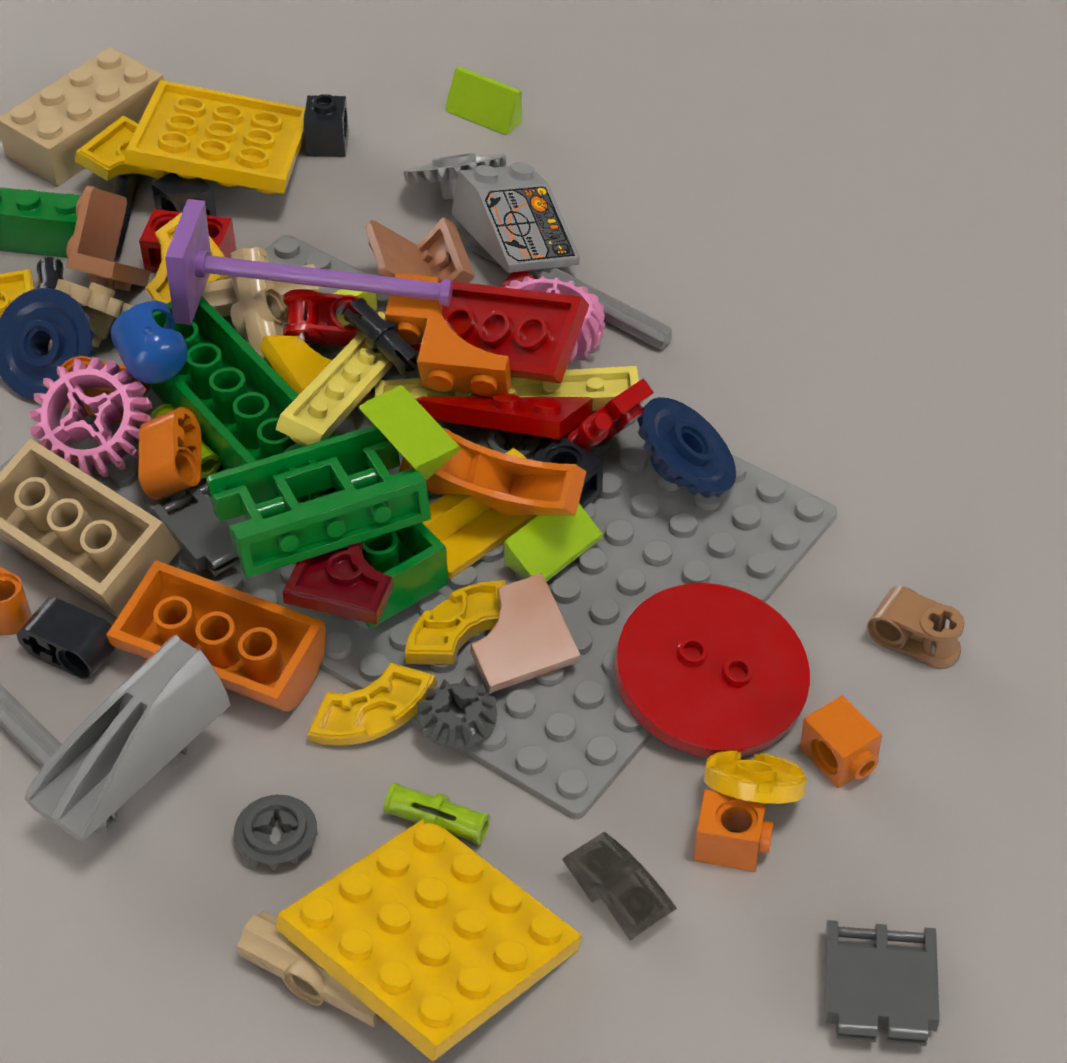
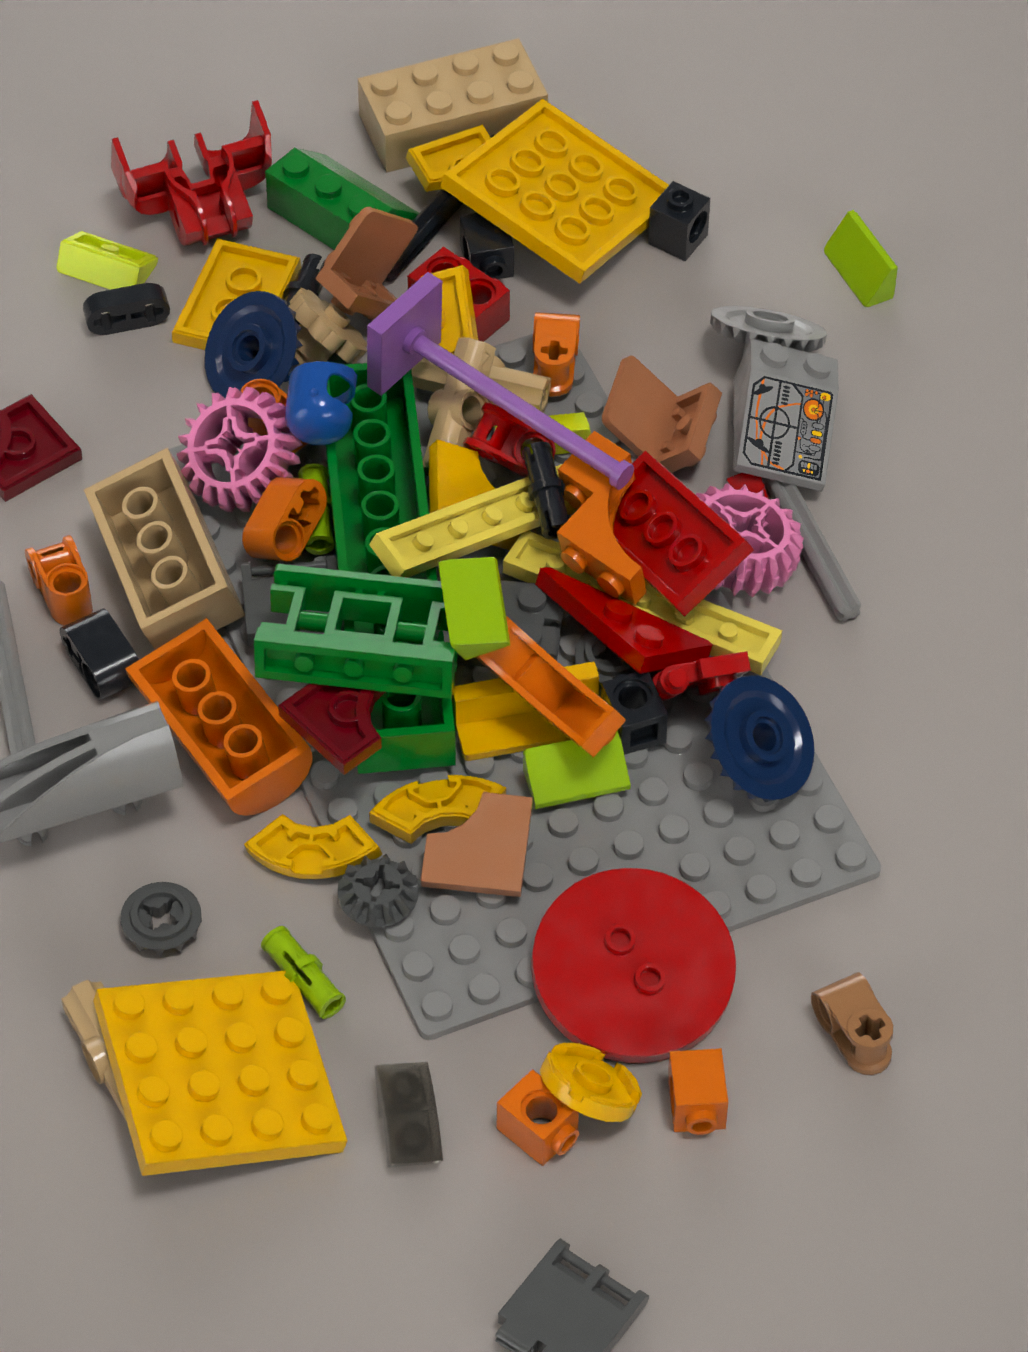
camera: 30 degrees right, 5 degrees up
(296, 241) = (555, 349): none -> orange piece

